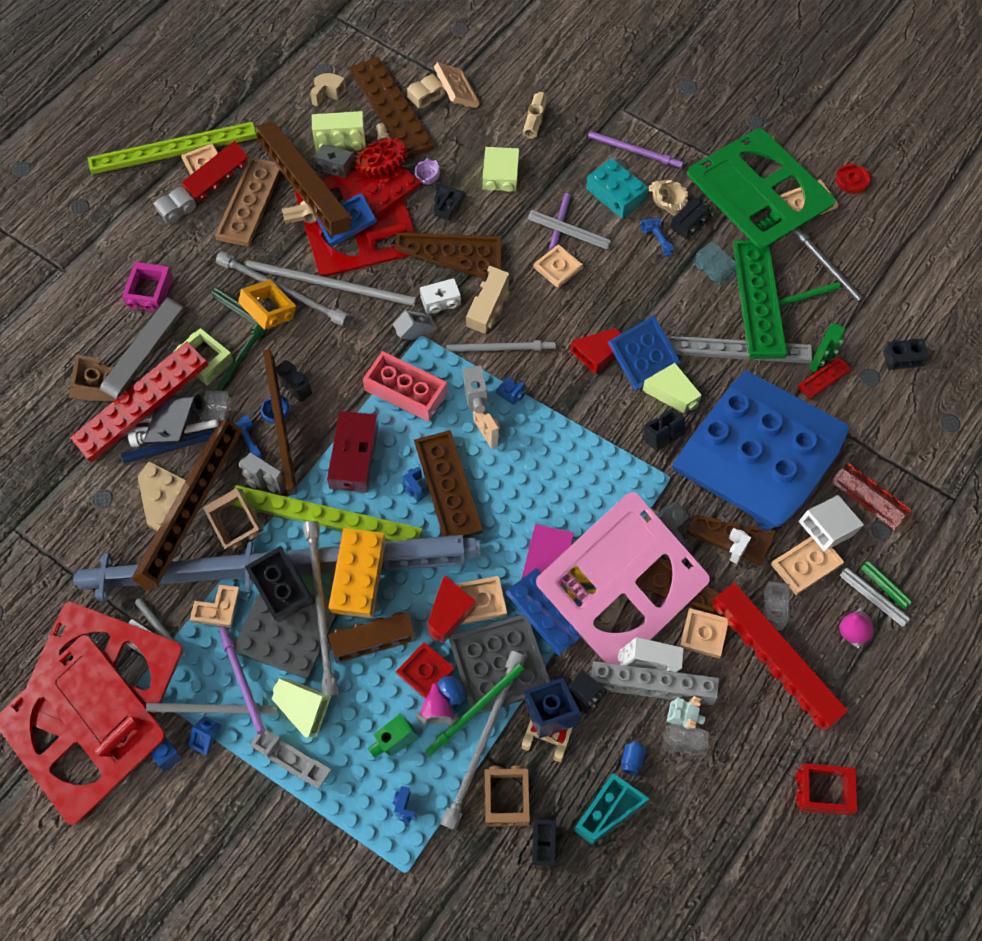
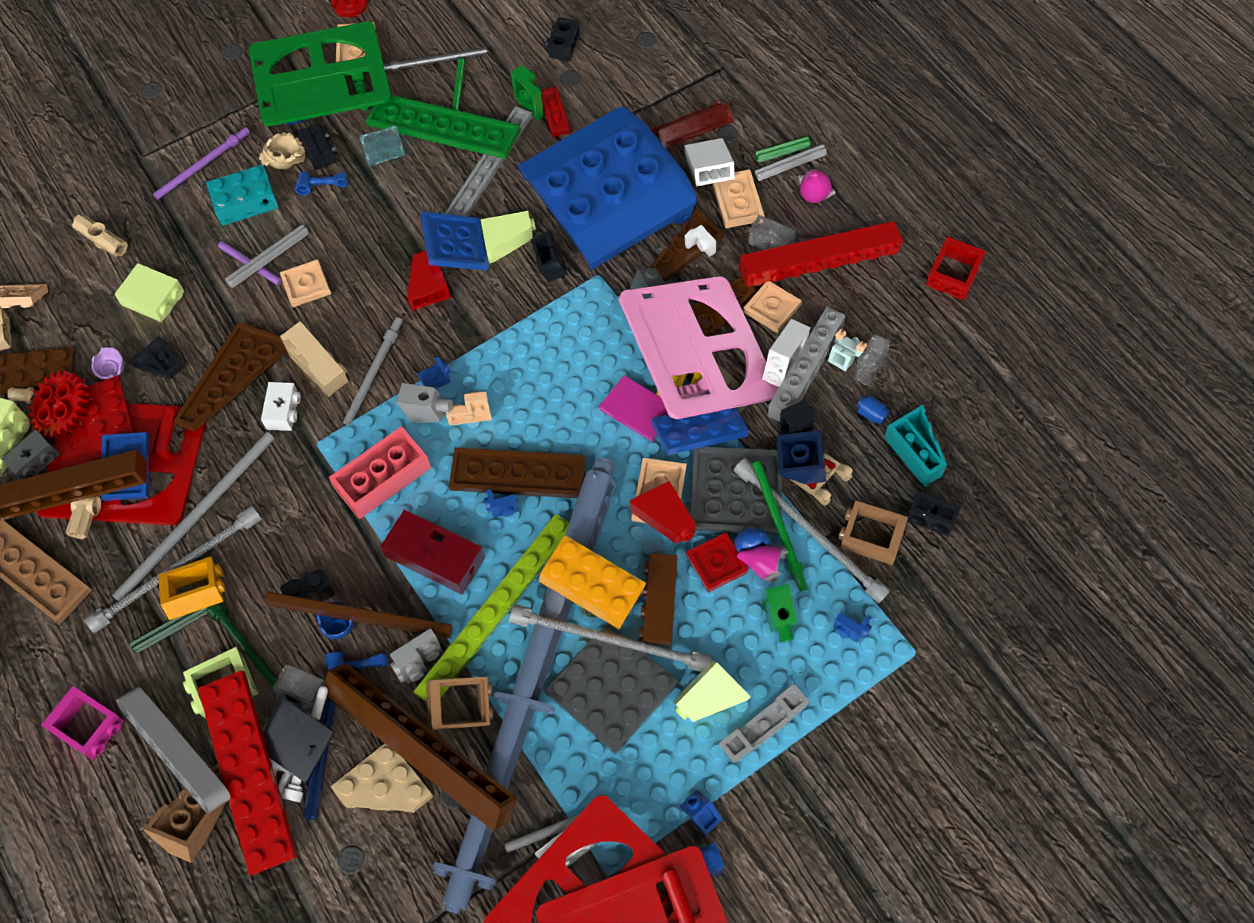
camera: 65 degrees left, 0 degrees up
(208, 708) = (694, 748): light grey bar -> none
(218, 613) = (564, 752): light nougat plate -> none
(228, 645) = (609, 754): medium lavender bar -> none
(279, 584) = (569, 667): black brick -> none
(414, 324) = (302, 444): light grey slope -> none

